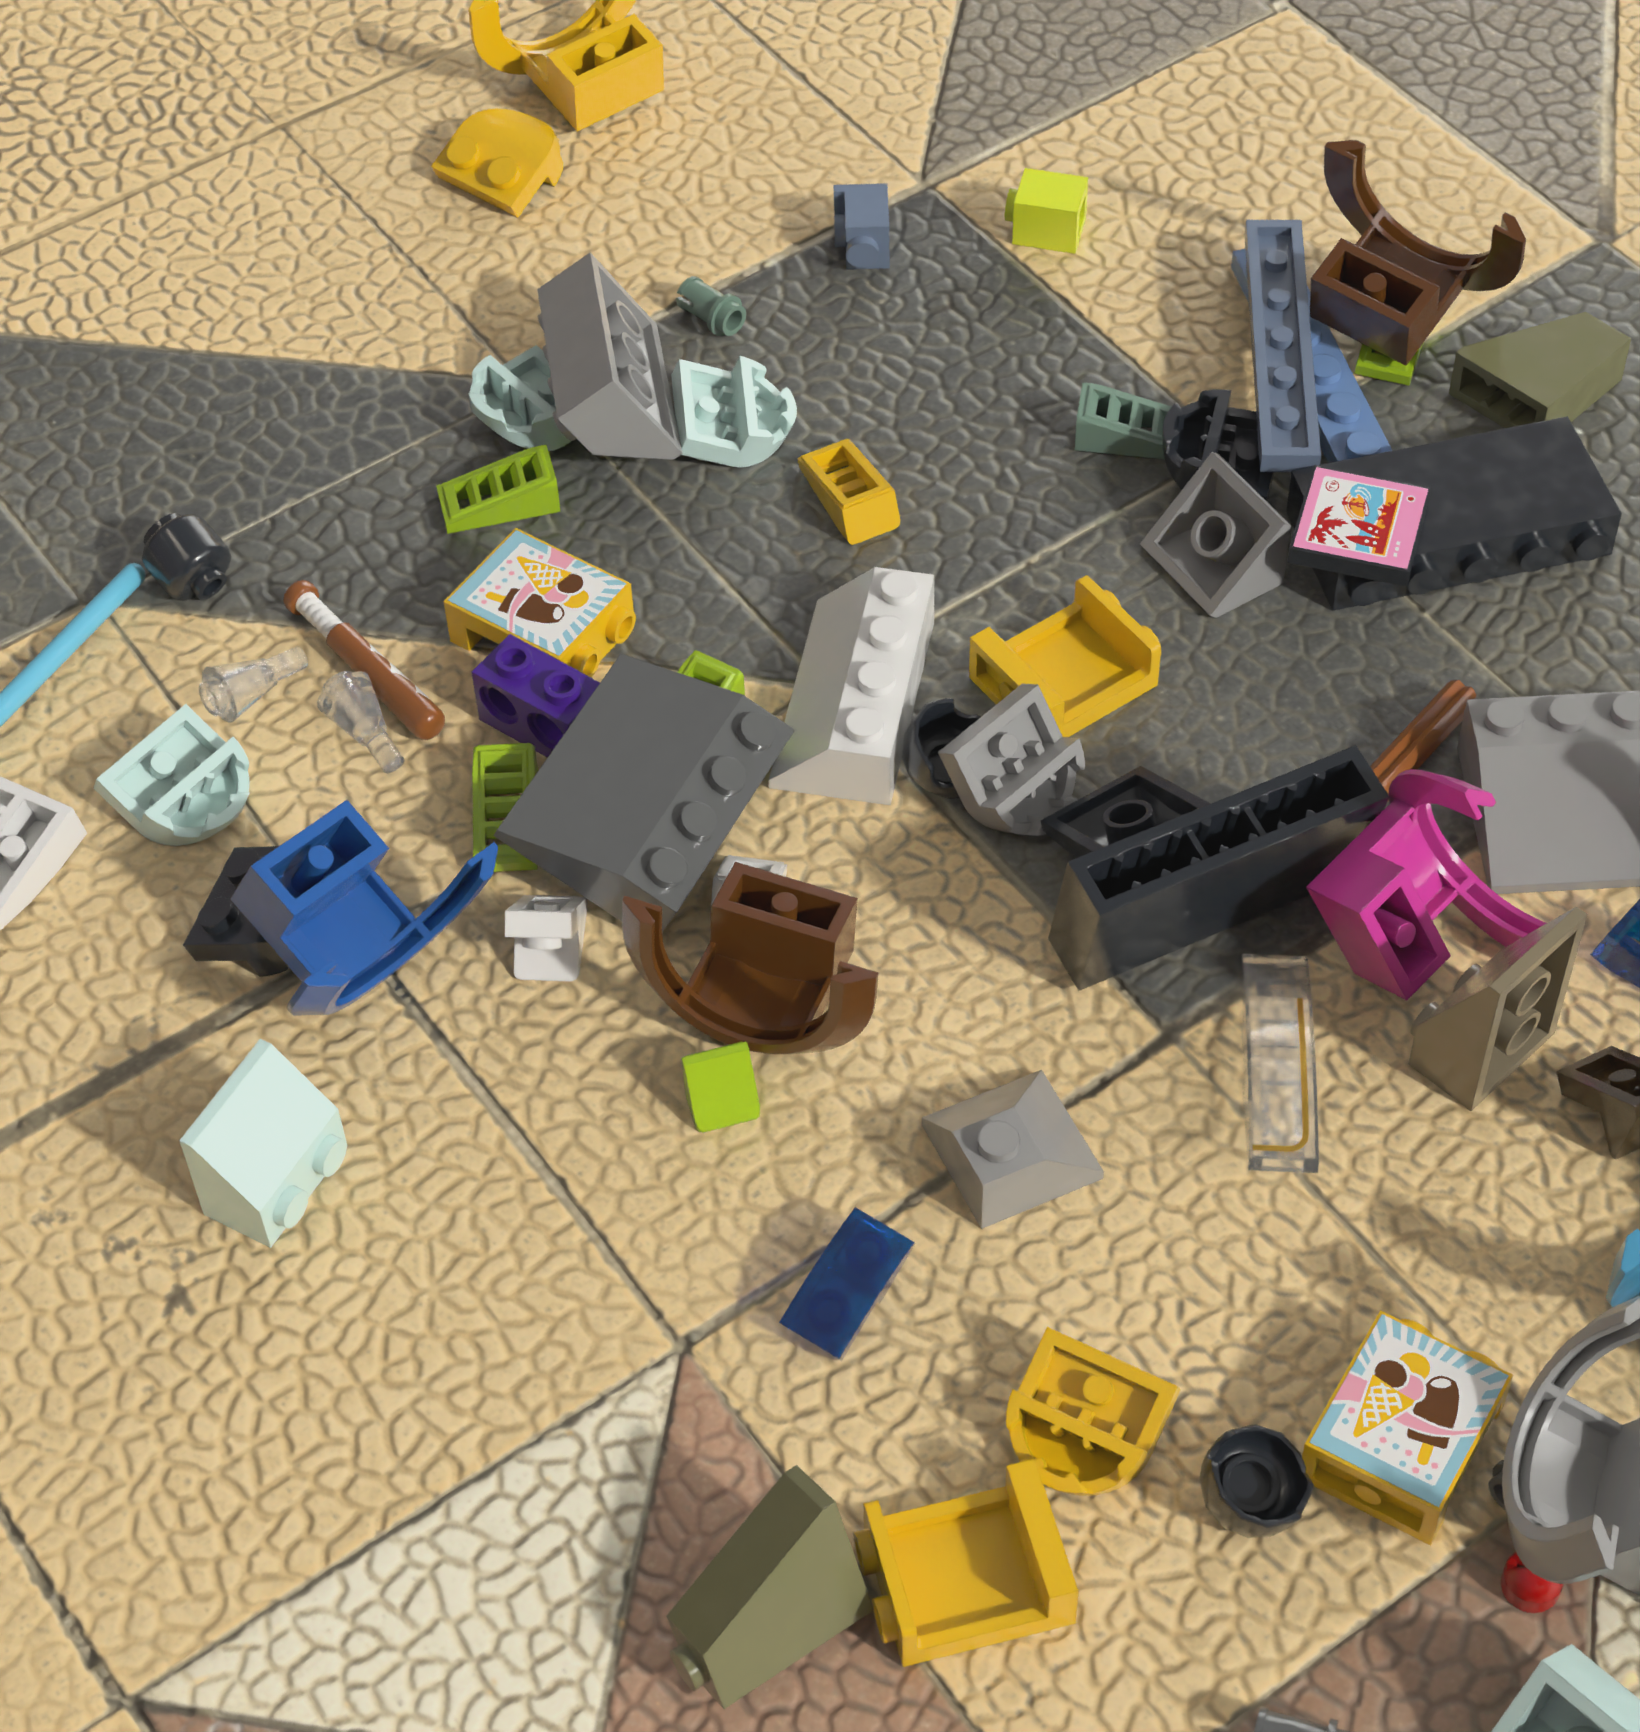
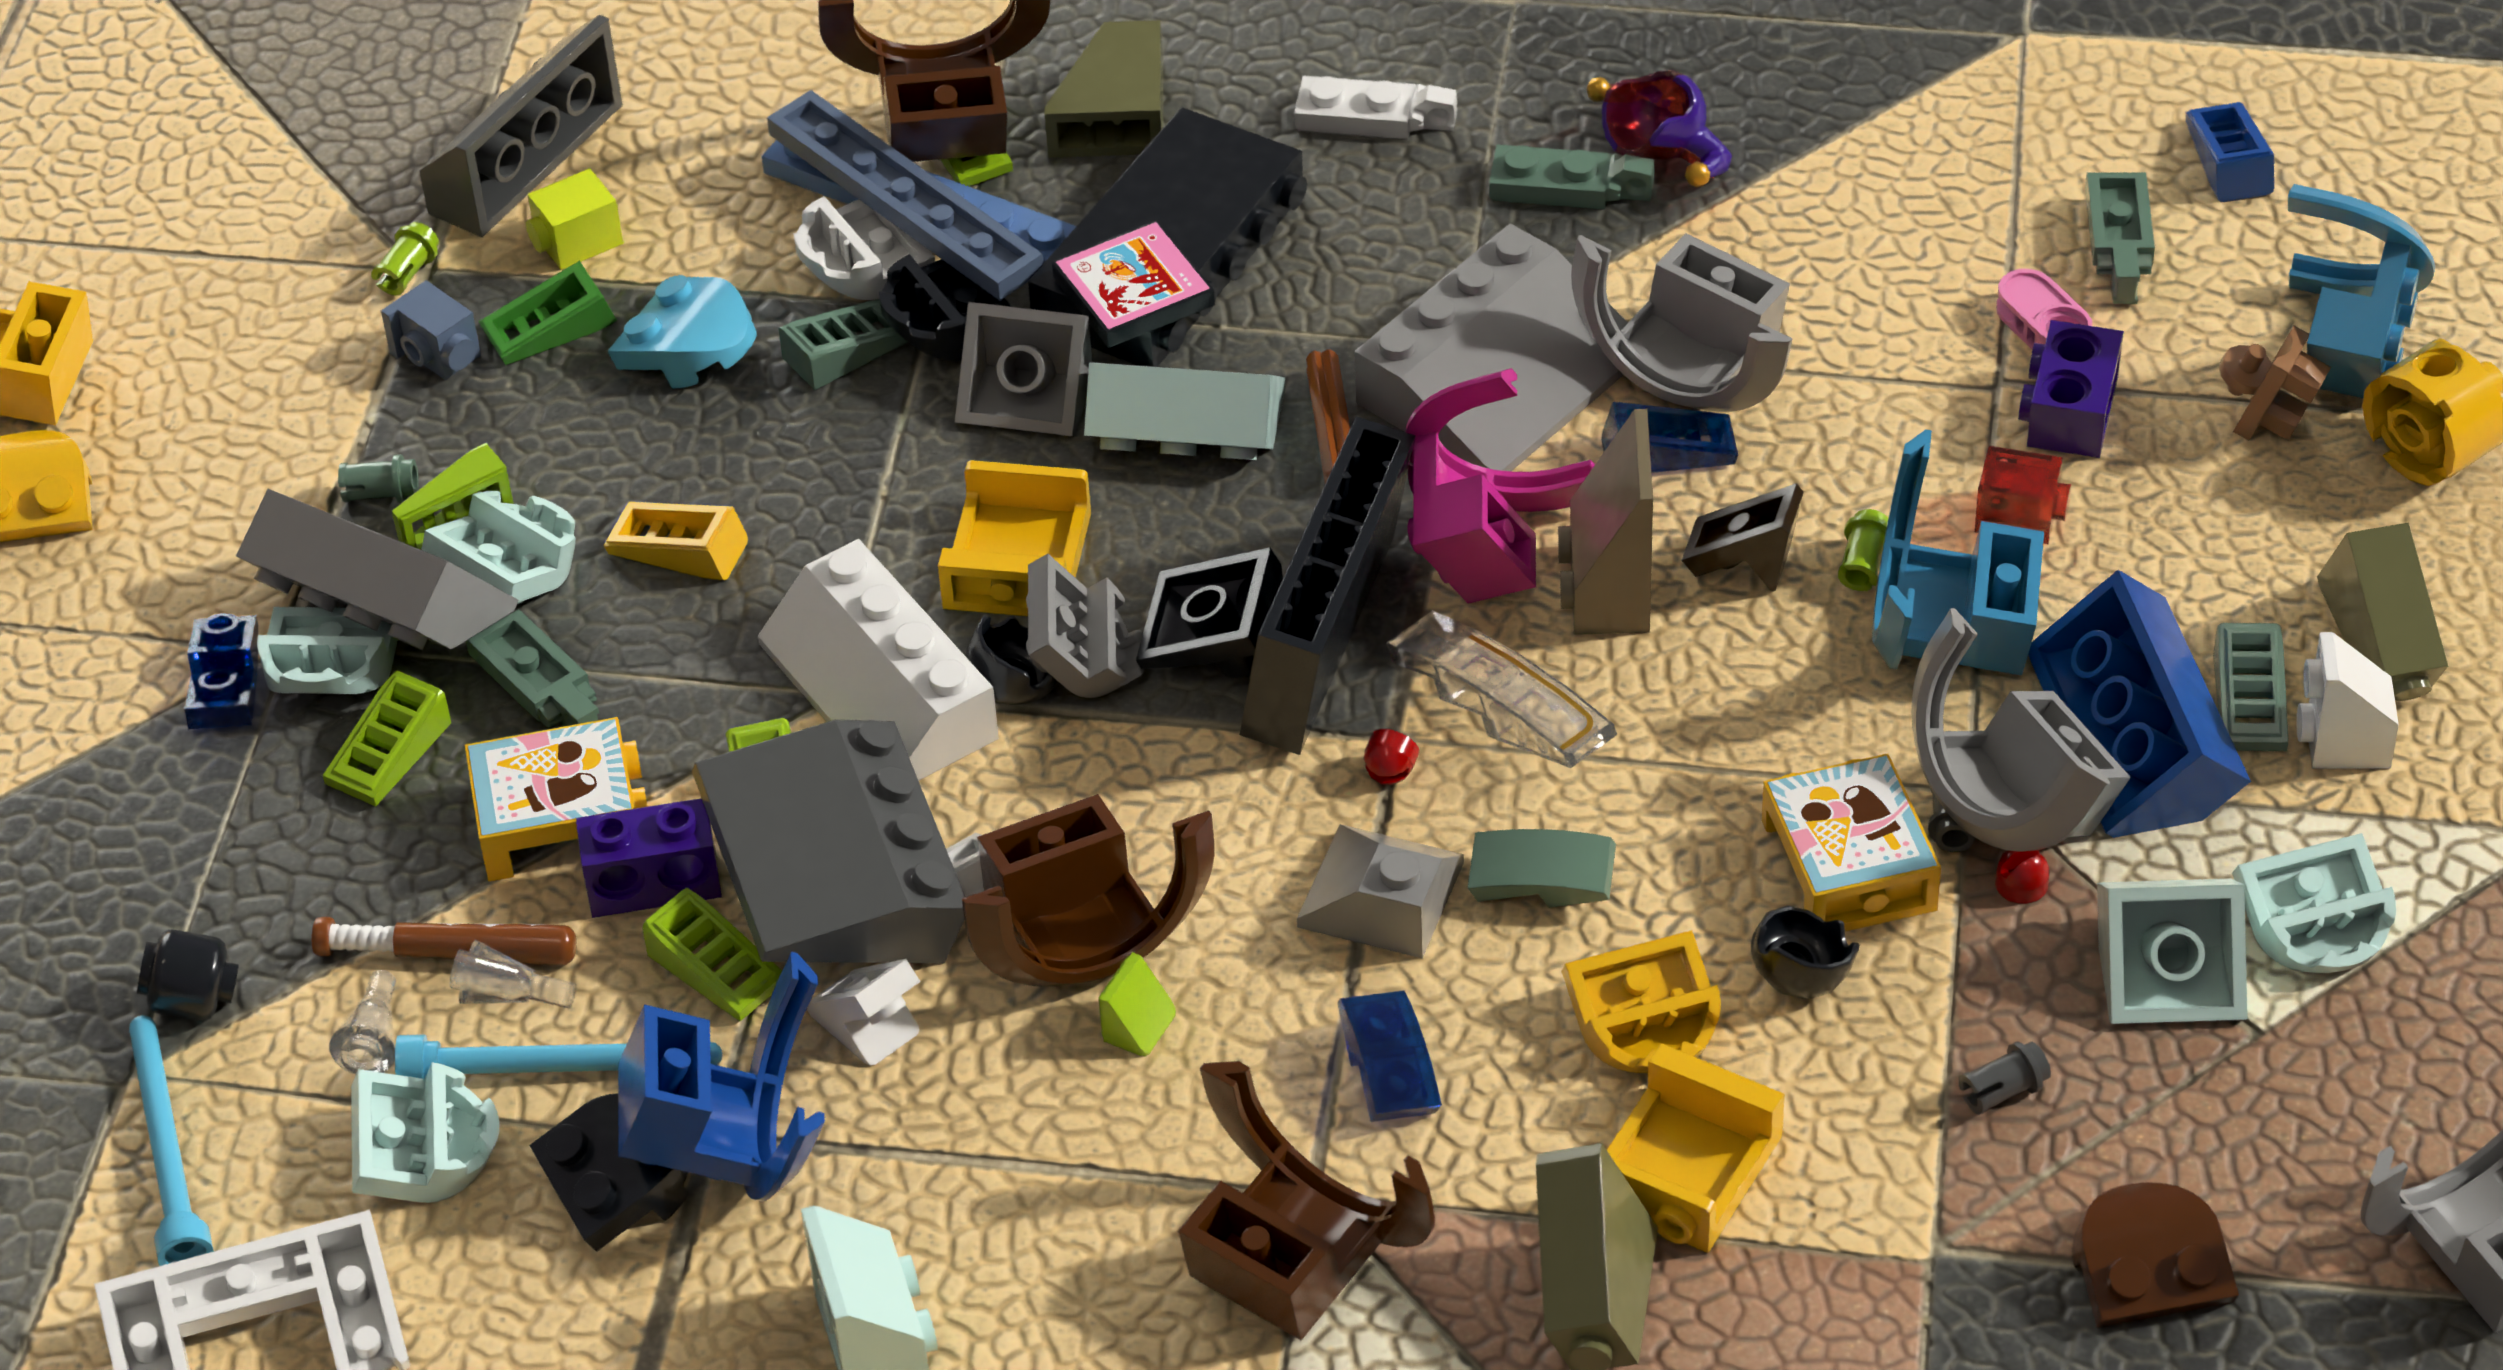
camera: 45 degrees left, 5 degrees down
(252, 732) = (416, 1054): none -> medium azure piece
(446, 382) = (222, 671): none -> clear blue slope
(605, 1362) = (1294, 1230): none -> reddish brown piece
(640, 516) = (534, 671): none -> sand green hinge
(759, 342) = (452, 493): none -> lime slope
(913, 163) = (413, 248): none -> lime pin
(976, 272) = (580, 313): none -> bright green slope
(1030, 342) = (686, 330): none -> medium azure slope
(1088, 124) = (525, 132): none -> dark grey slope
(1134, 1047) = (1390, 756): none -> red hinge
(1141, 1231) = (1546, 862): none -> sand green slope
(1206, 356) = (853, 247): none -> white slope
(1306, 651) = (1182, 409): none -> light aqua slope

